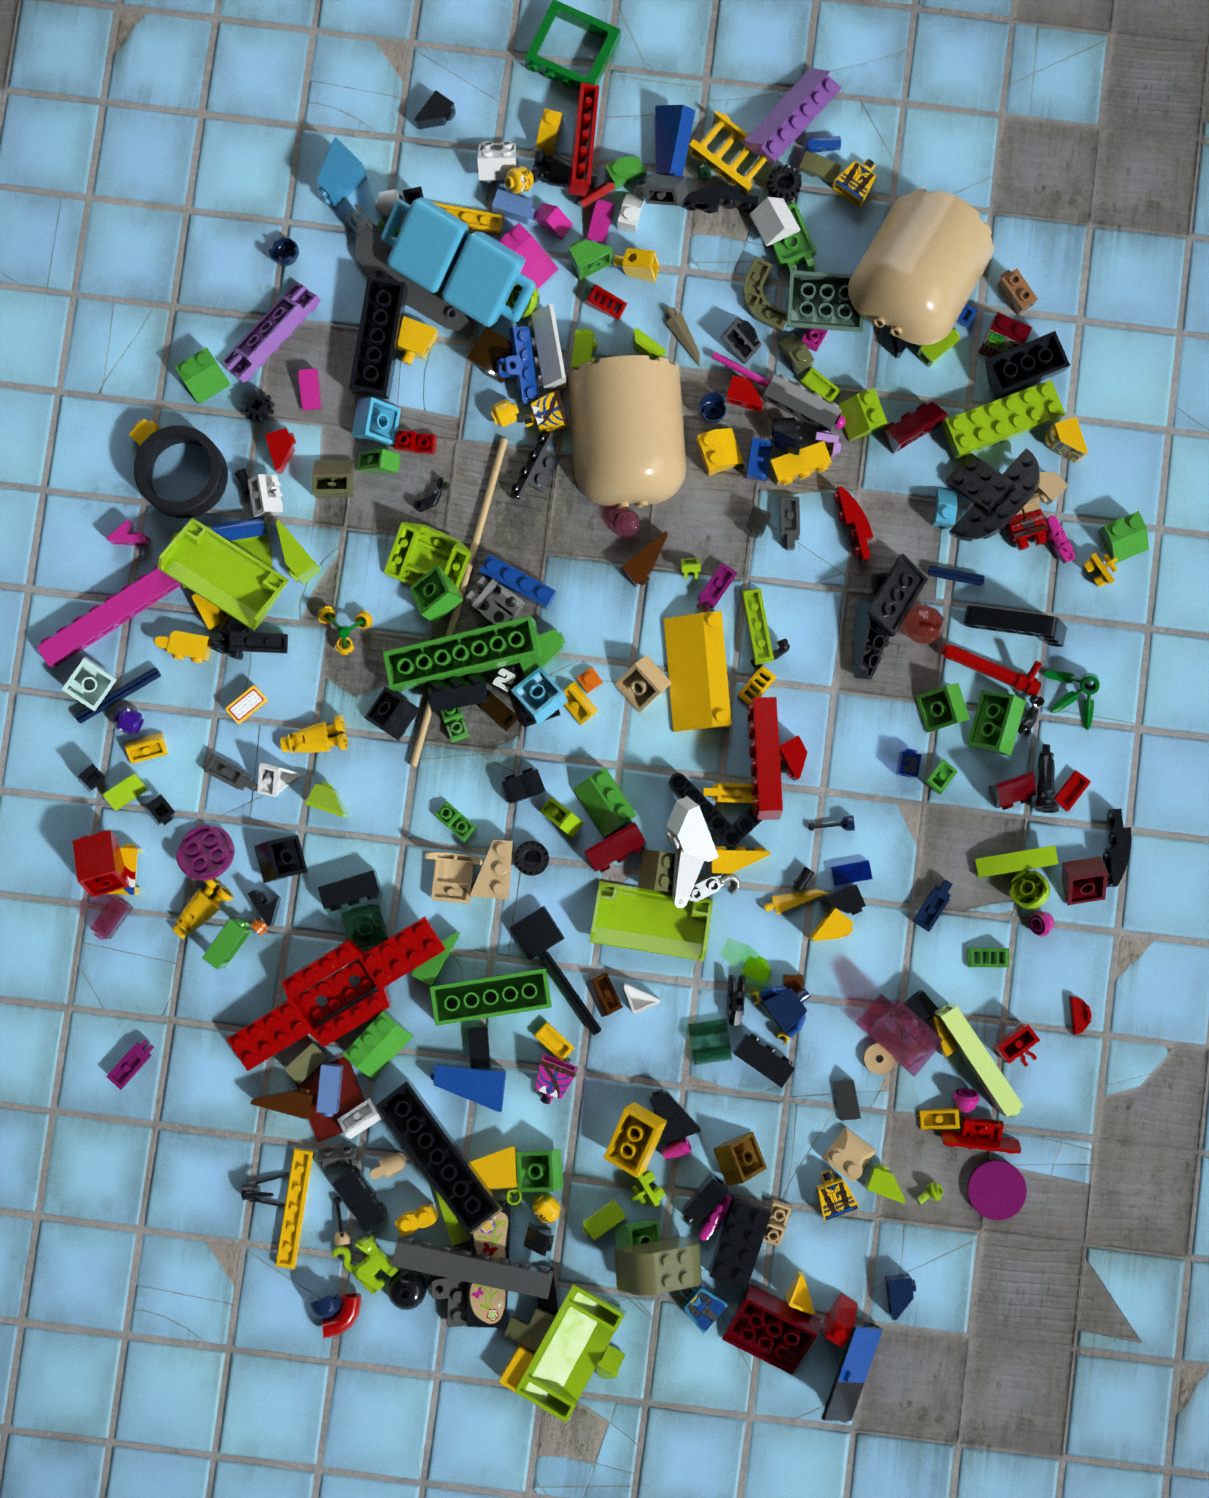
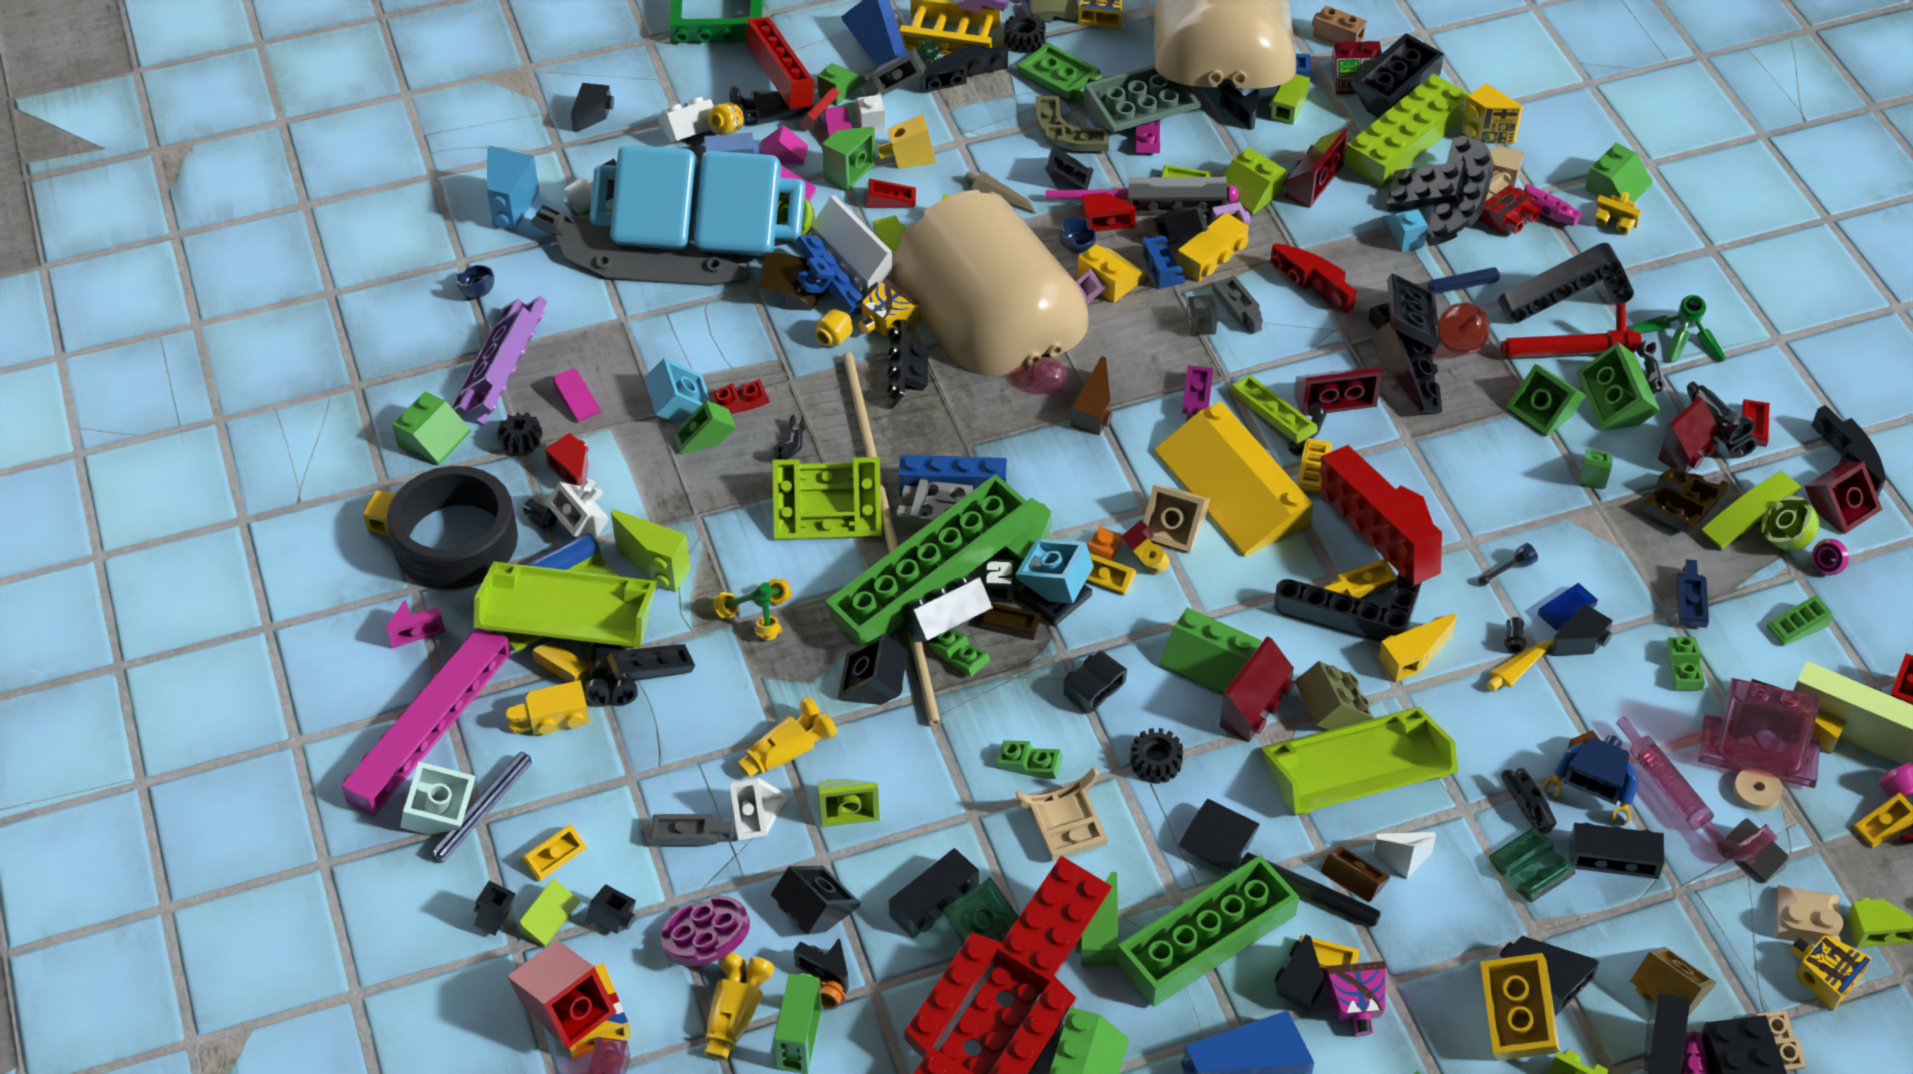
camera: 25 degrees left, 35 degrees down
(128, 721) = (514, 824): dark purple head -> none
(246, 704) = (668, 744): slope -> none
(333, 479) = (658, 467): olive slope -> none
(378, 338) = (637, 308): black brick -> none
(415, 340) = (683, 301): yellow torso -> none
(435, 594) = (858, 523): bright green slope -> none
(479, 1047) = (1226, 1005): black tile -> none
(495, 873) = (1122, 788): tan wedge -> none
(529, 1053) = (1302, 978): none -> black slope
(549, 131) = (732, 73): yellow slope -> none
(561, 817) = (1167, 692): lime slope -> none
(609, 701) = (1149, 554): none -> leg
(677, 1148) = (1583, 1007): dark pink cone -> none
(690, 565) = (1153, 383): lime tile -> none
(693, 847) = (1351, 630): white slope -> none
(694, 458) = (1090, 285): none -> lavender slope
(756, 969) = (1530, 752): clear neon green brick -> none
(774, 220) = (1034, 60): white slope -> none
(796, 353) = (1140, 158): olive slope -> none
(809, 631) = (1339, 389): none -> dark red slope
(828, 1046) = (1687, 800): none -> clear pink piece
(832, 926) = (1590, 658): yellow slope -> none
(895, 951) = (1684, 663): none -> bright green slope
(908, 763) = (1550, 468): clear blue brick -> none
(979, 829) = (1682, 499): none -> dark brown slope

